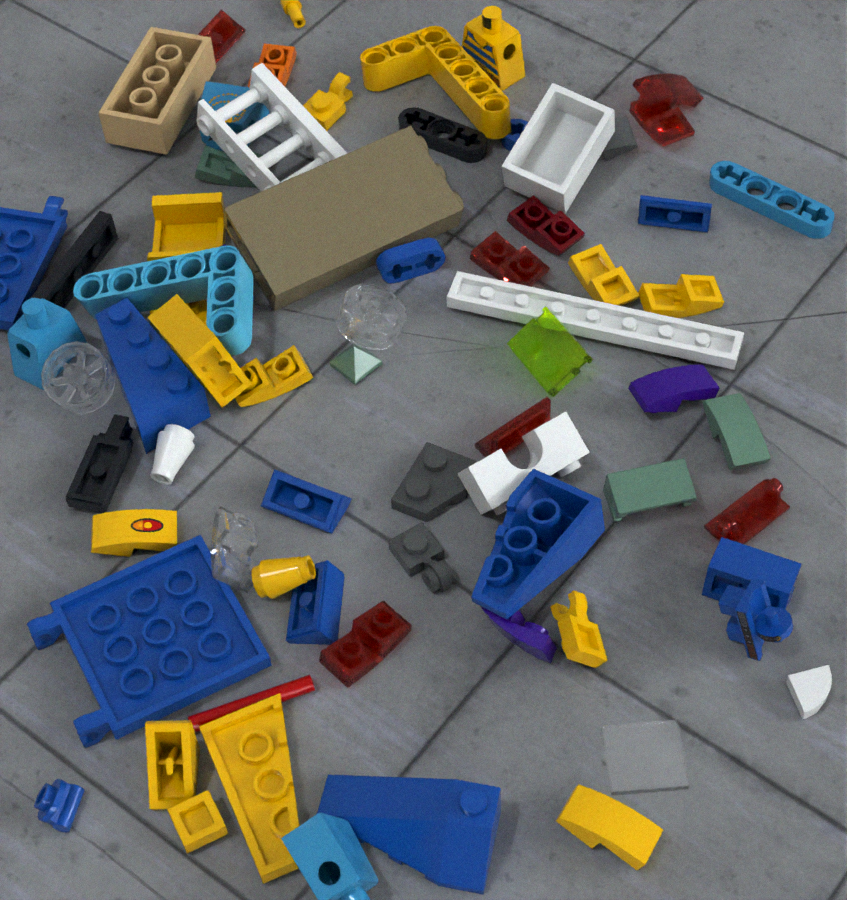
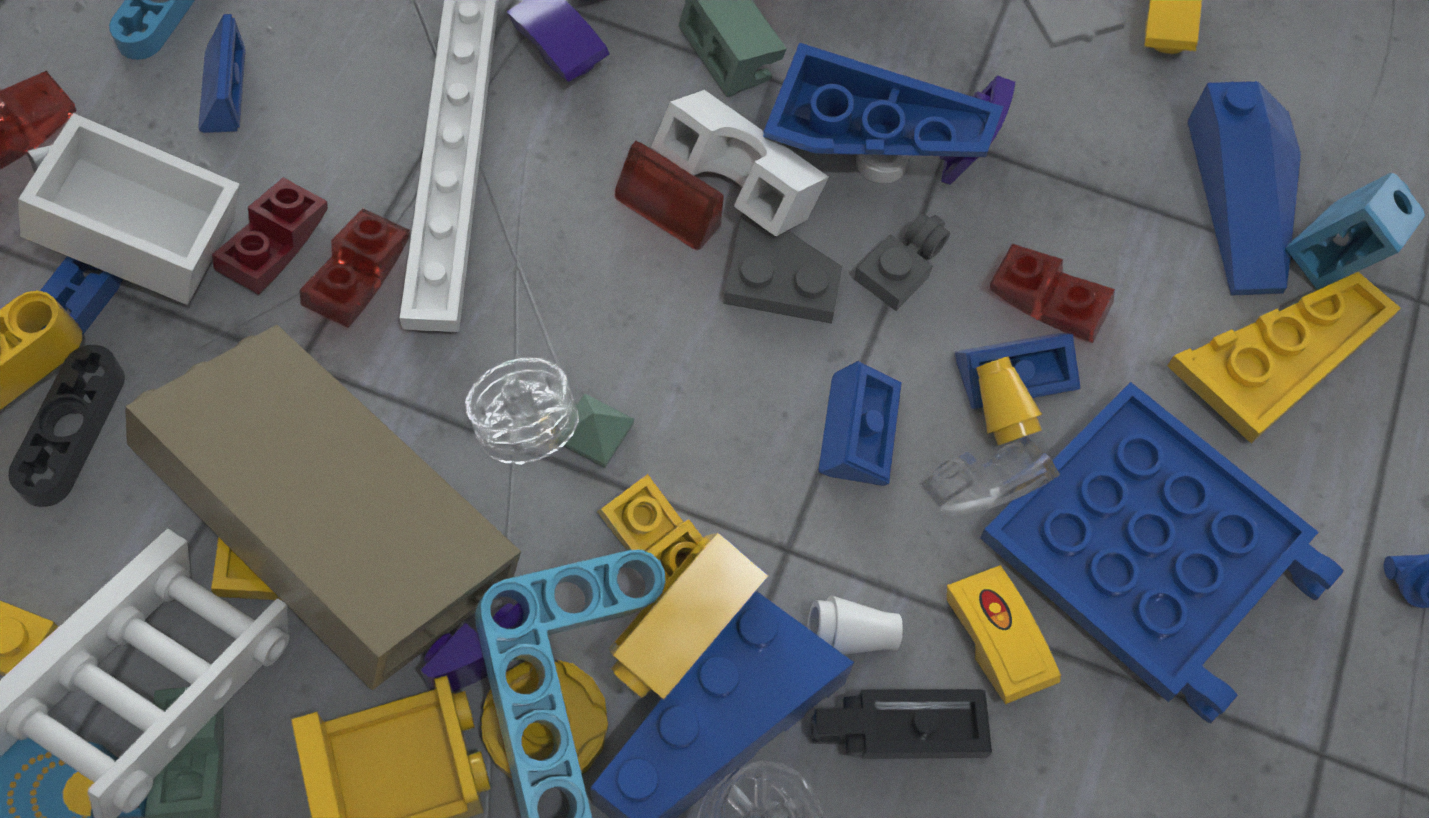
camera: 115 degrees left, 10 degrees up
(171, 762) = (1312, 452): yellow slope -> none
(197, 821) = (1366, 402): yellow plate -> none
(287, 691) = (1186, 400): red bar -> none
(410, 260) = (382, 392): blue beam -> none
(549, 351) = (530, 175): clear neon green plate -> none
(579, 636) = (963, 70): yellow plate -> none
(602, 278) = (373, 145): yellow slope -> none
(686, 298) = (385, 54): yellow slope -> none

